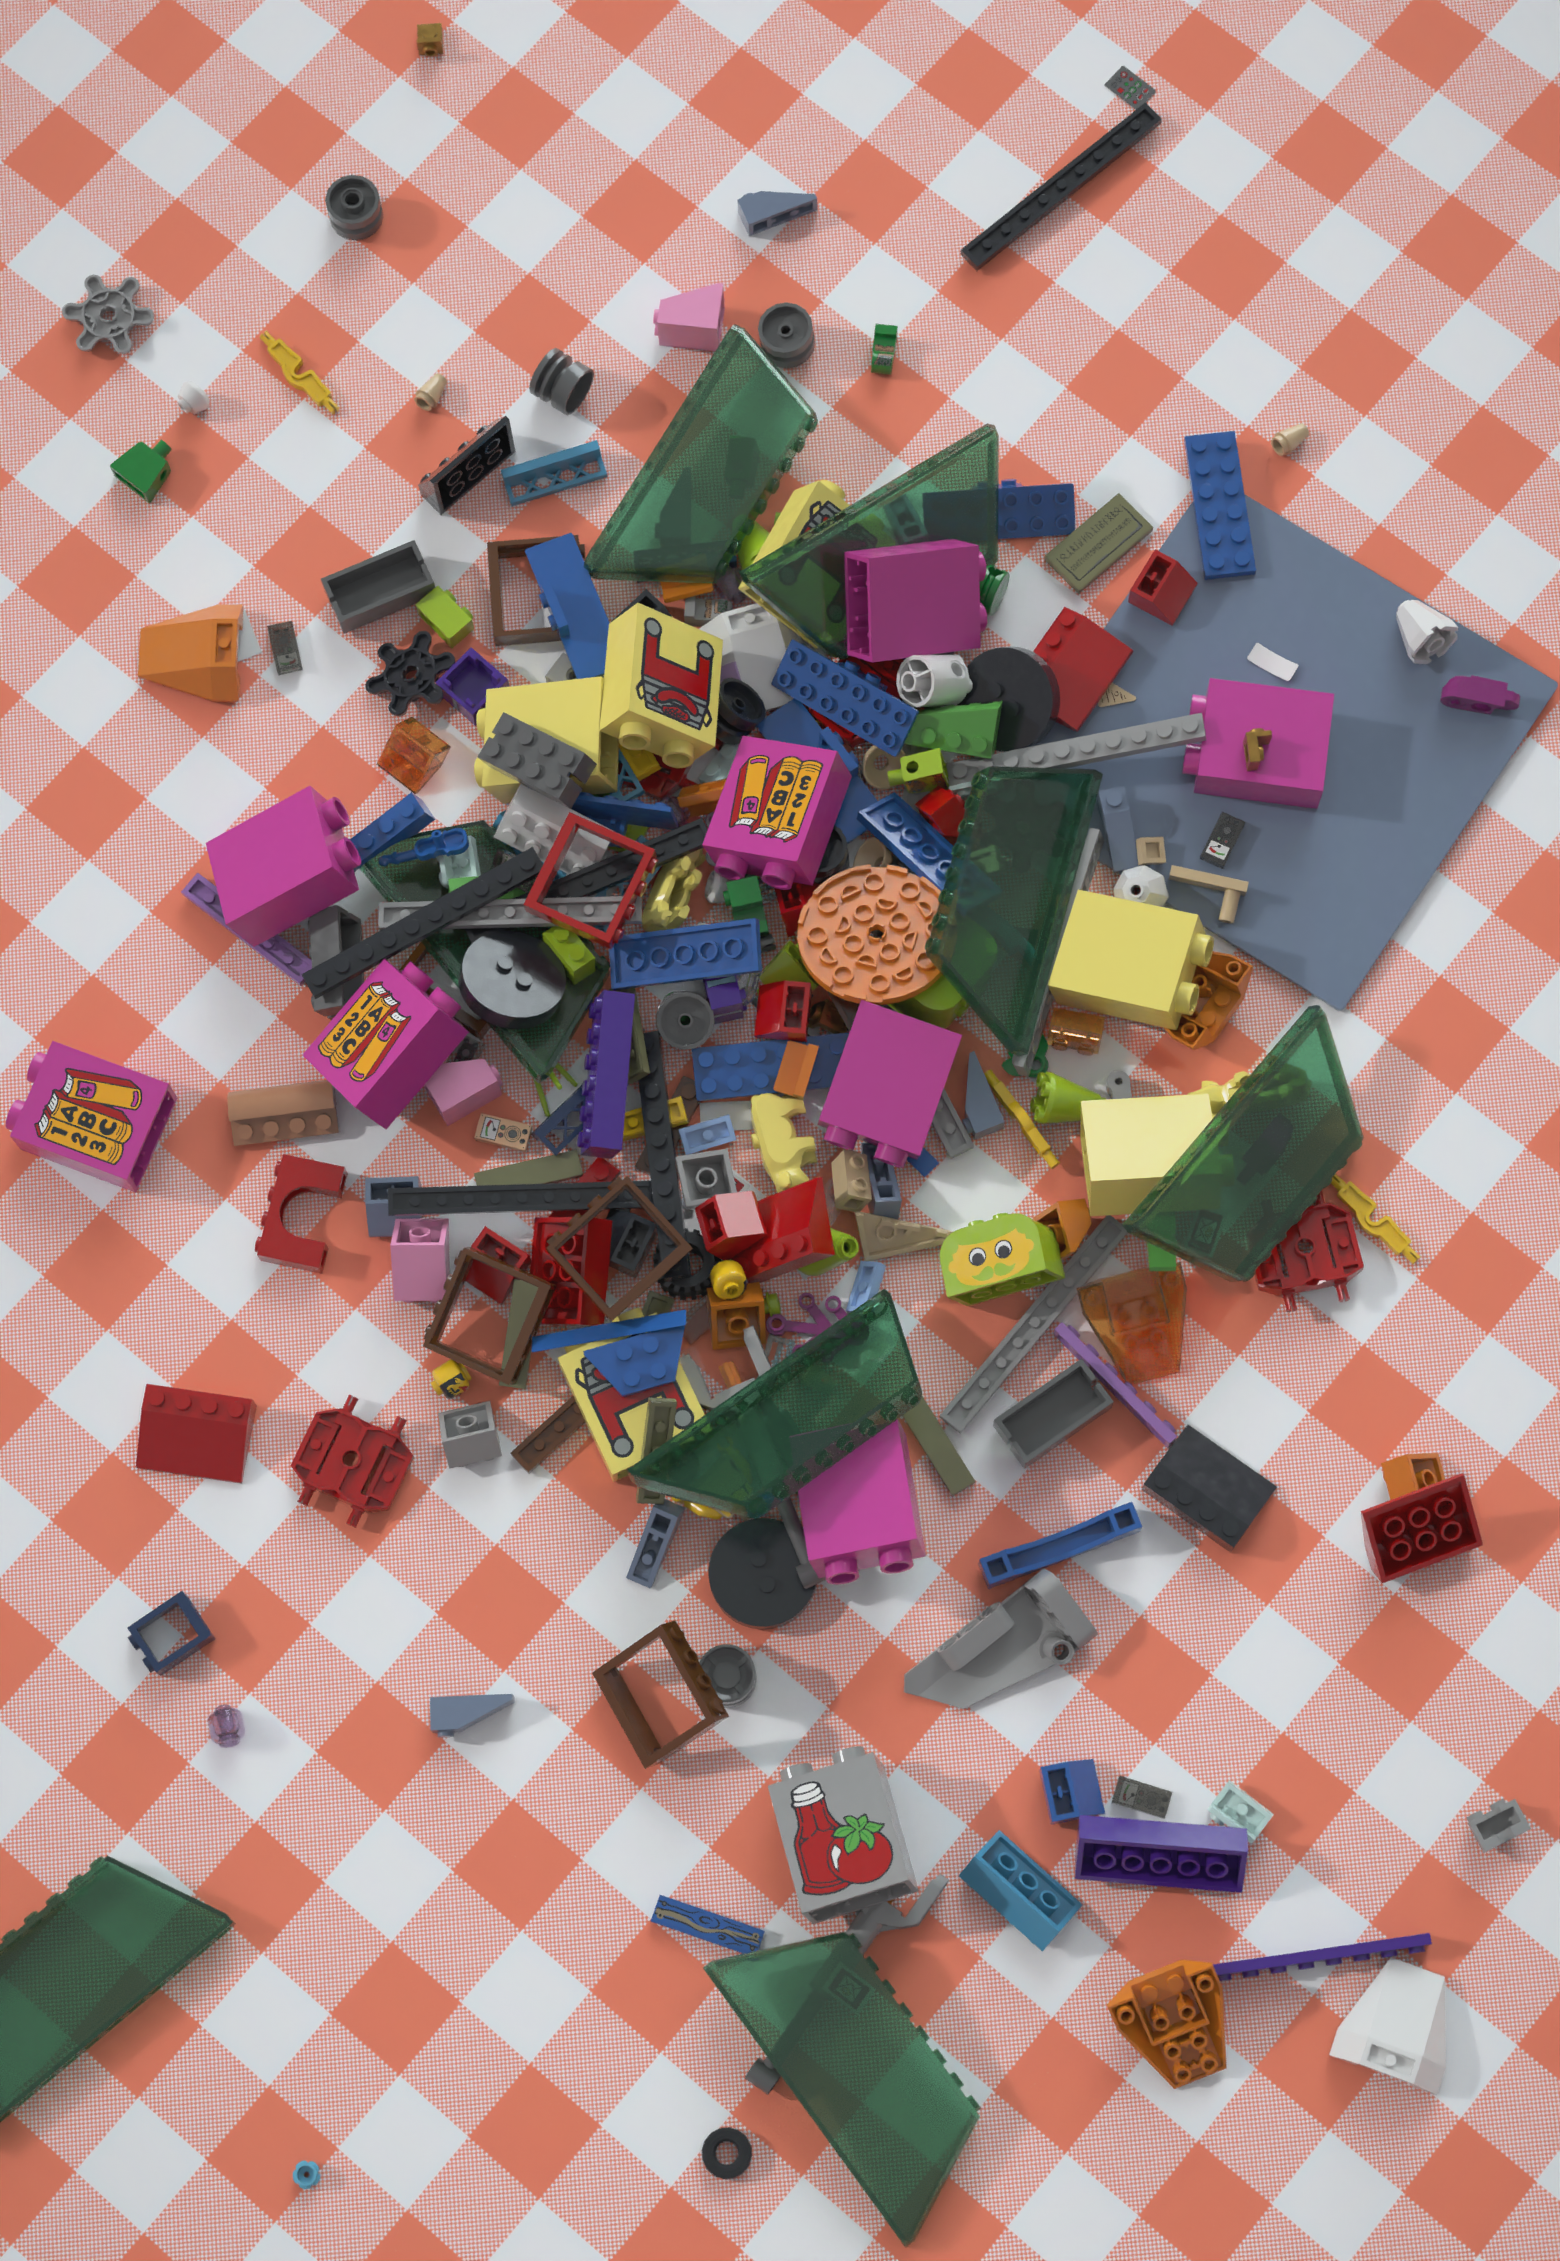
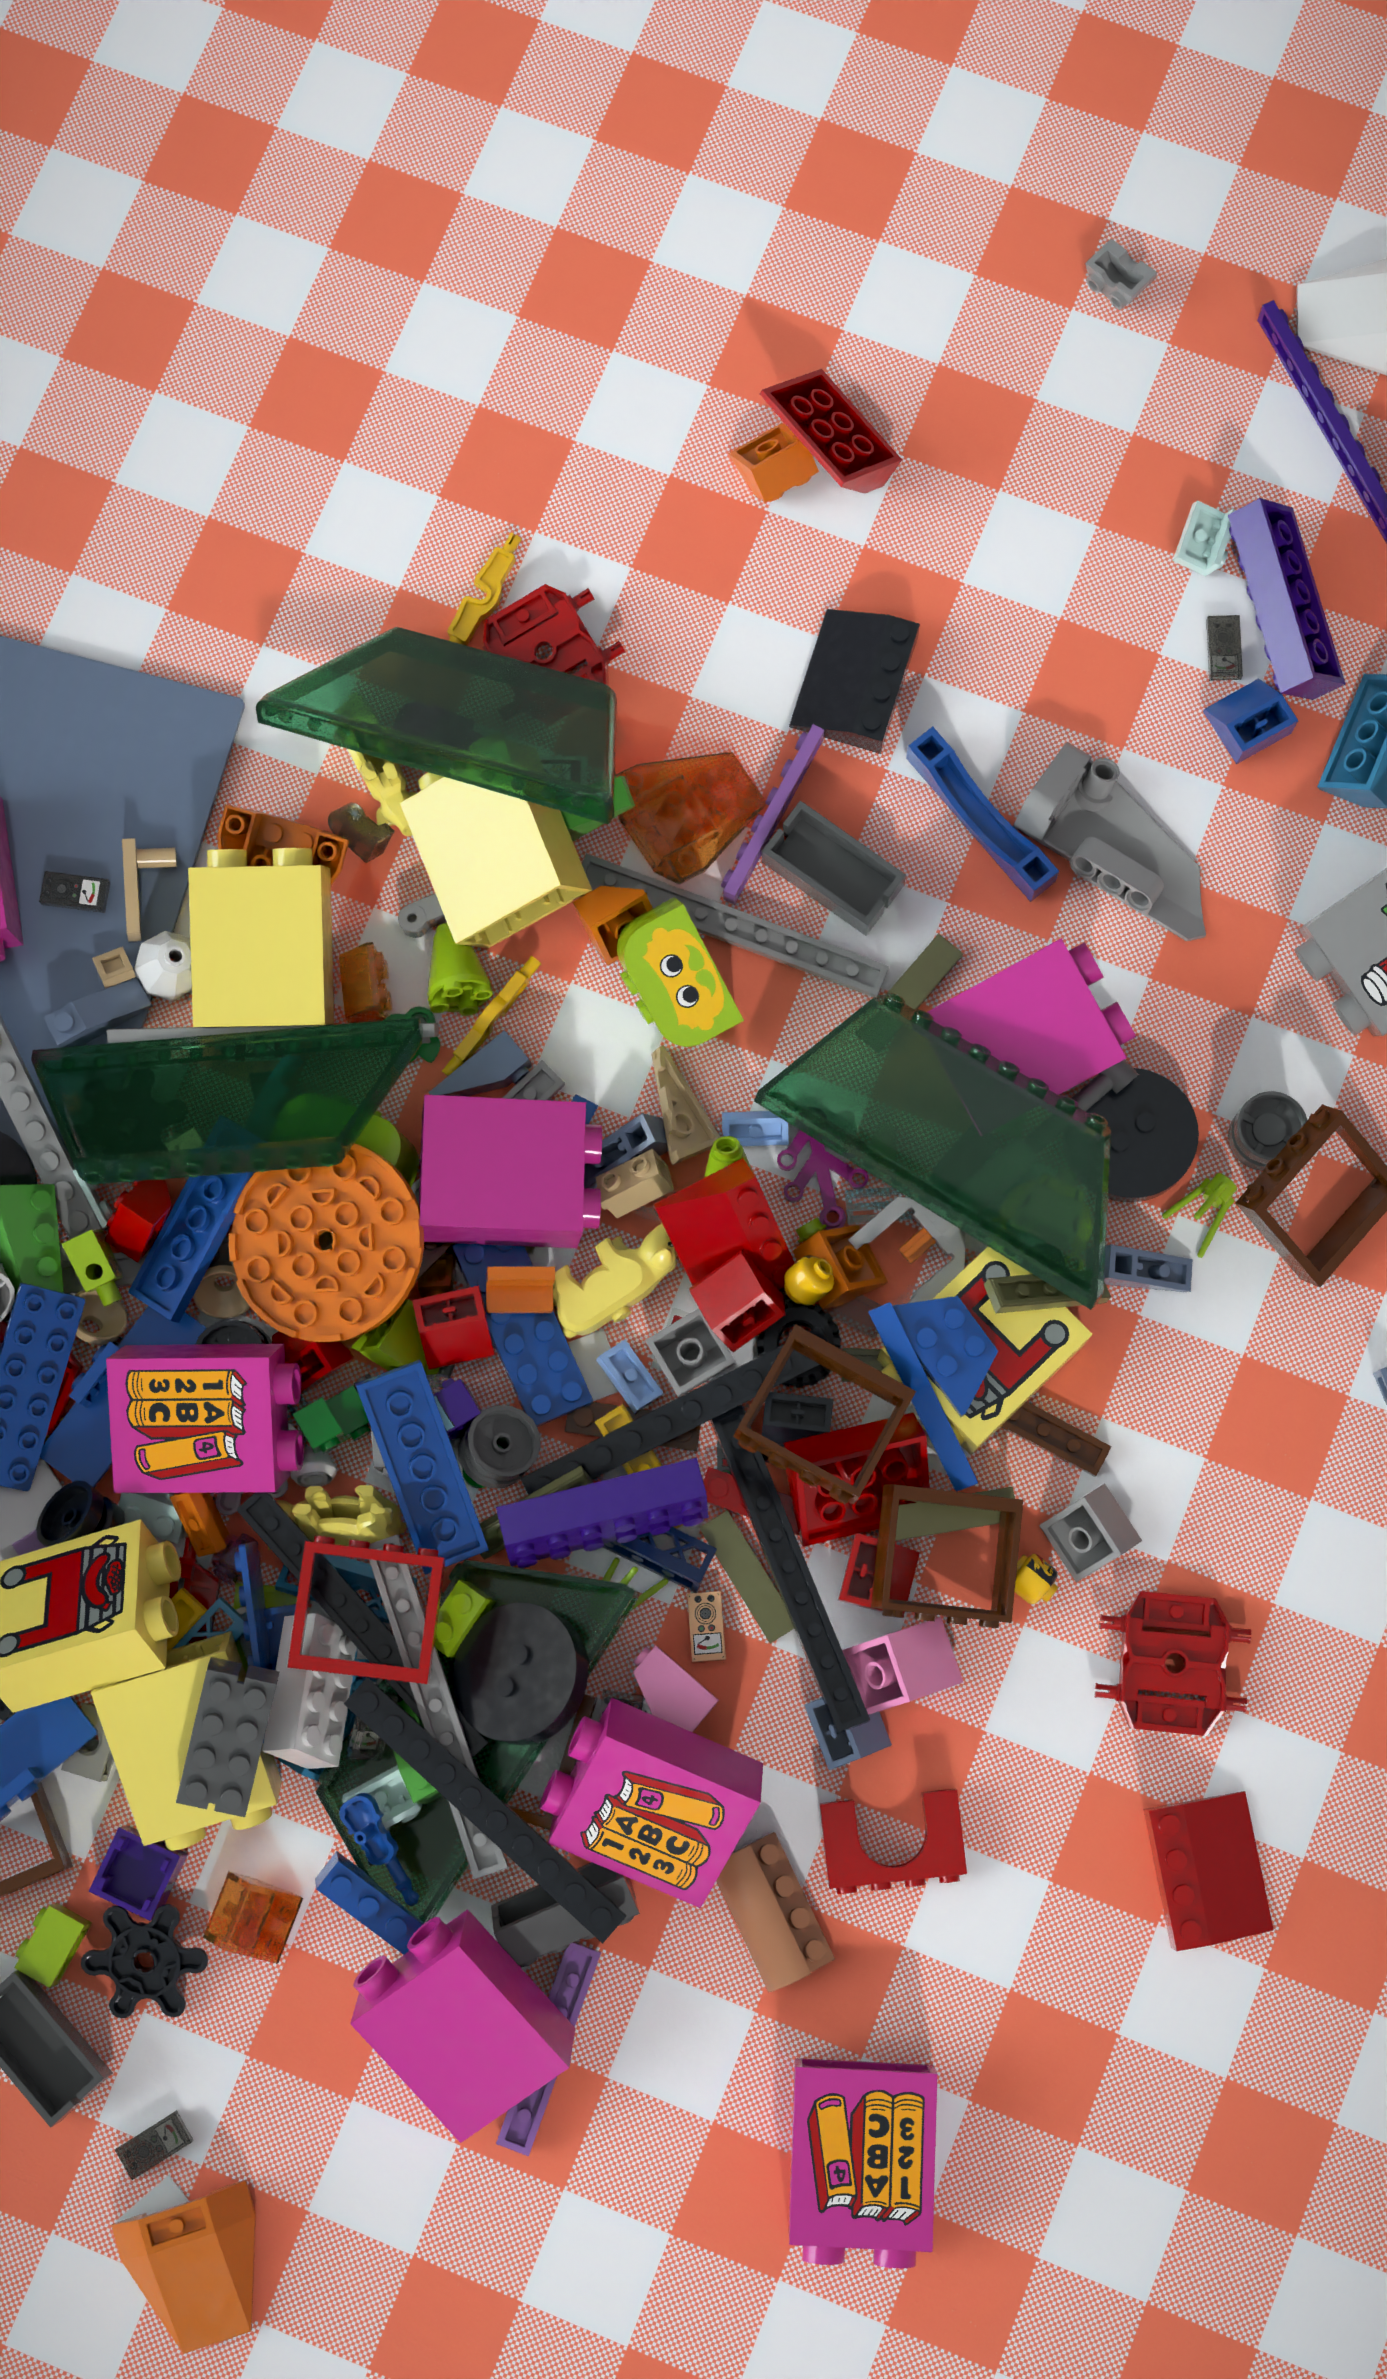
camera: 105 degrees left, 5 degrees up
(694, 1625) = (1217, 1192): none -> lime plant
(1203, 1064) = (364, 835): none -> clear smoke leg

